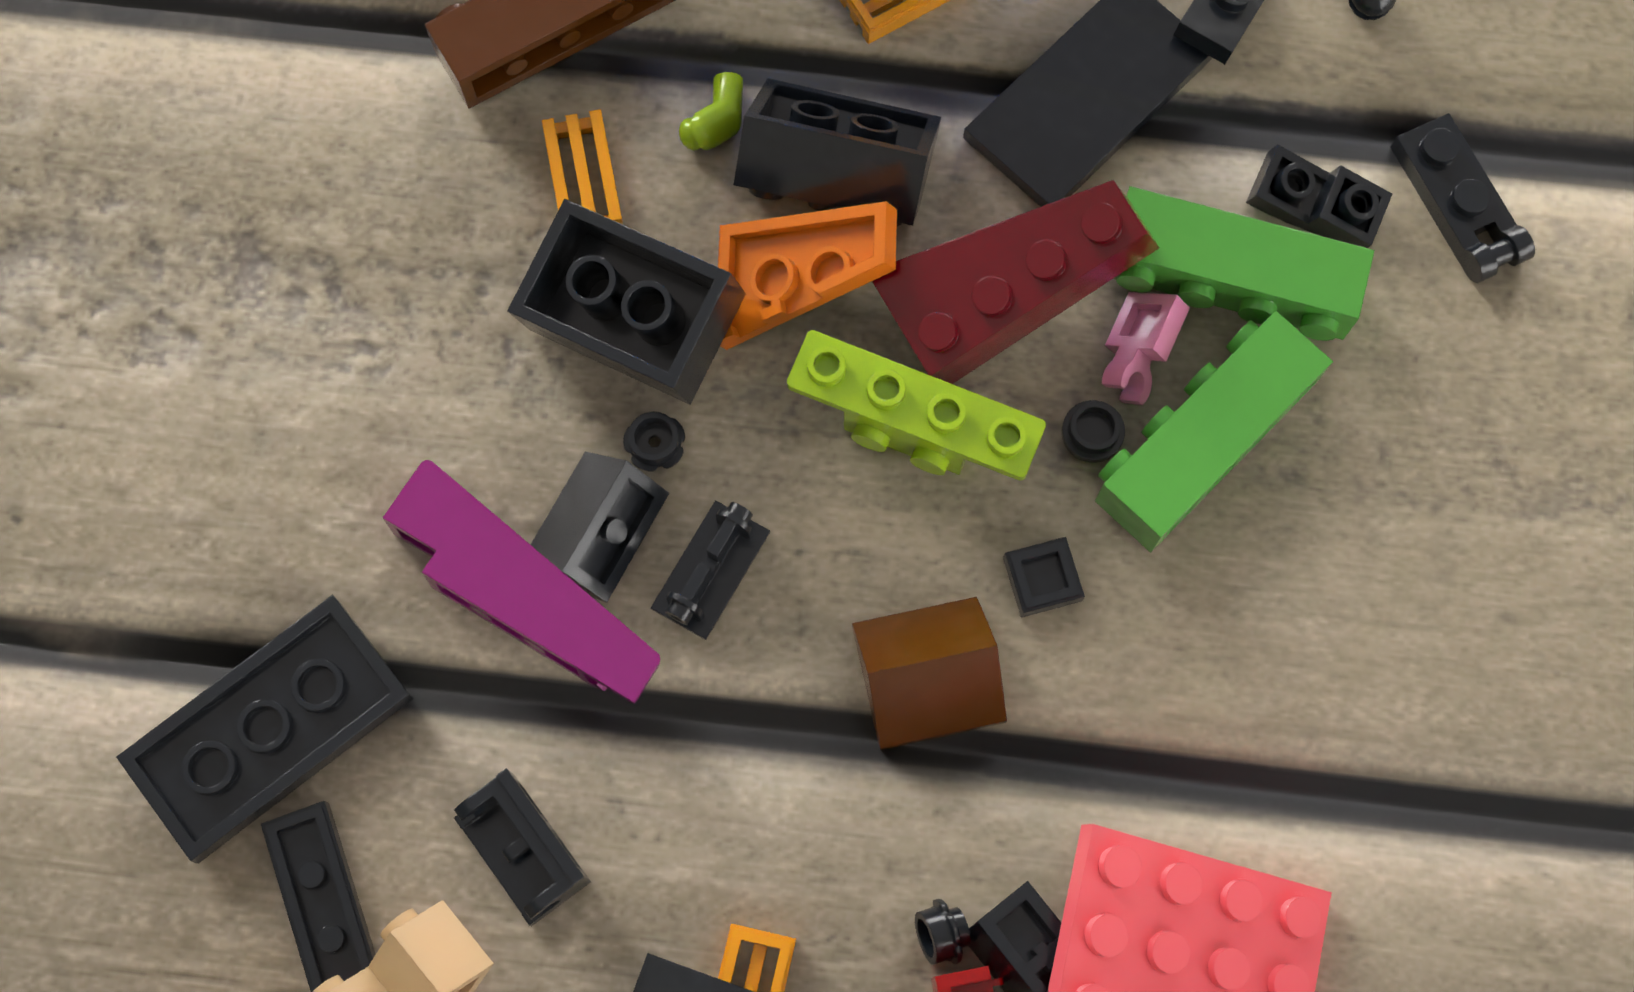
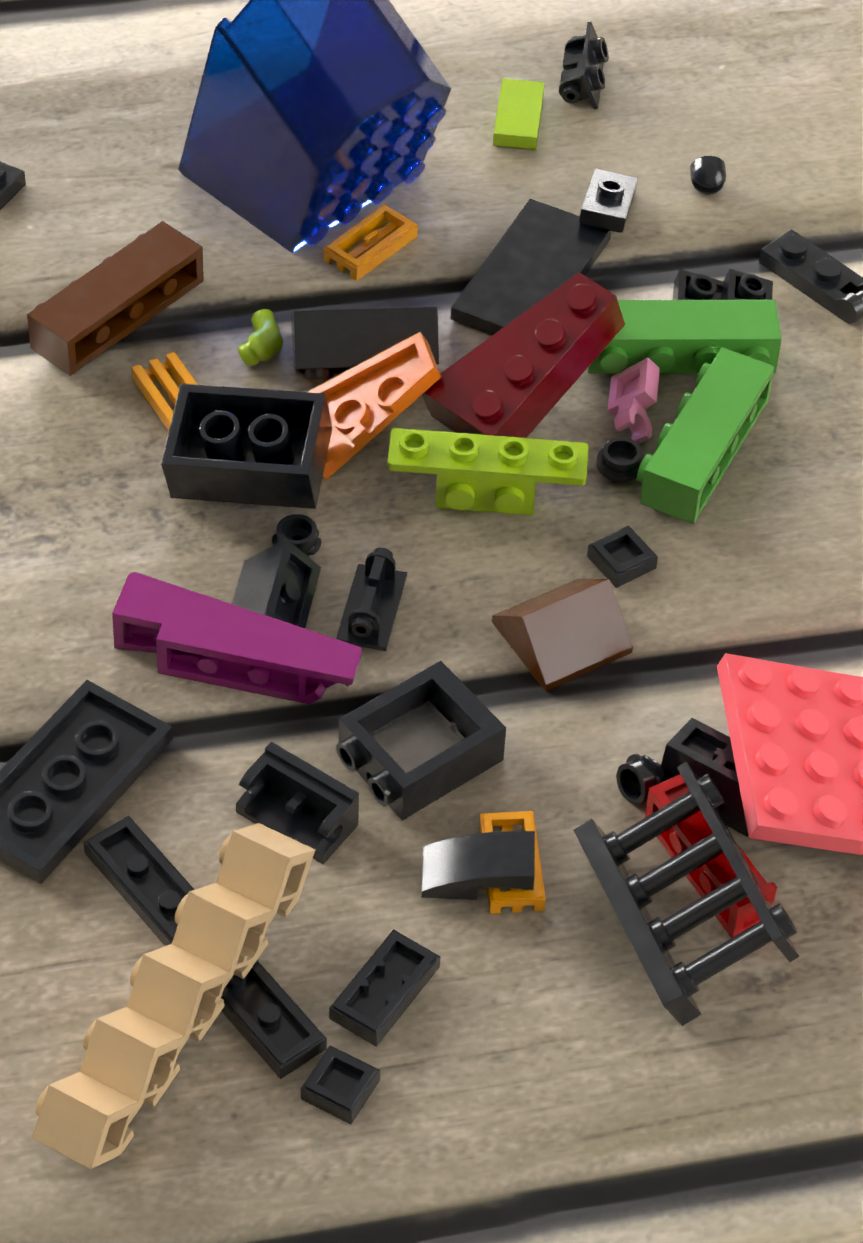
camera: 20 degrees left, 25 degrees down
(687, 801) = (420, 740): none -> black window

